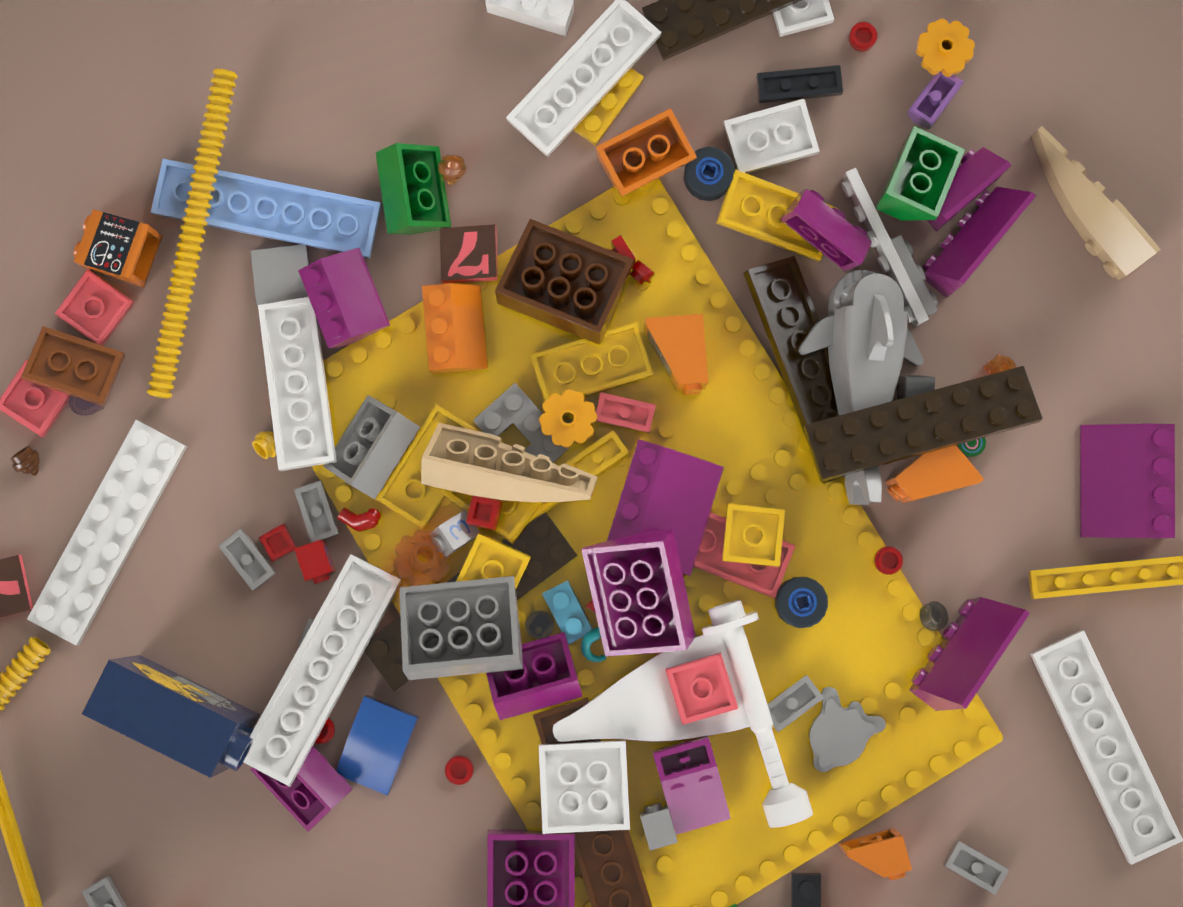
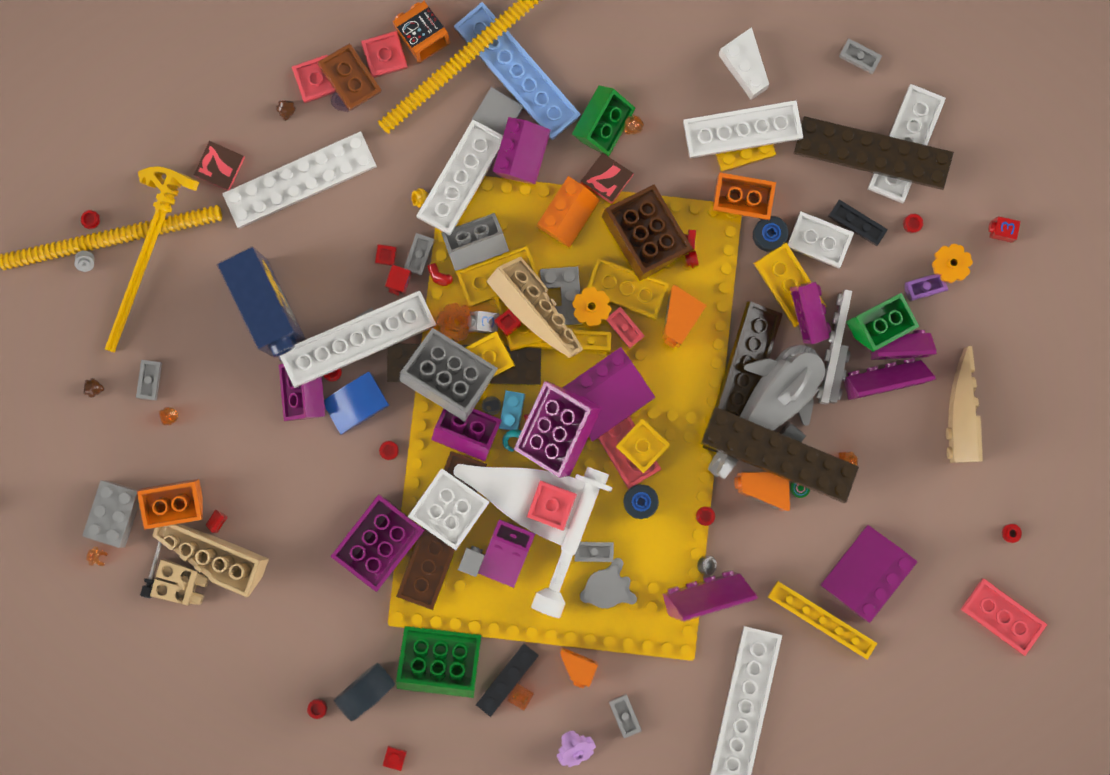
camera: 35 degrees right, 0 degrees up
(247, 559) = (362, 251): light grey plate -> none

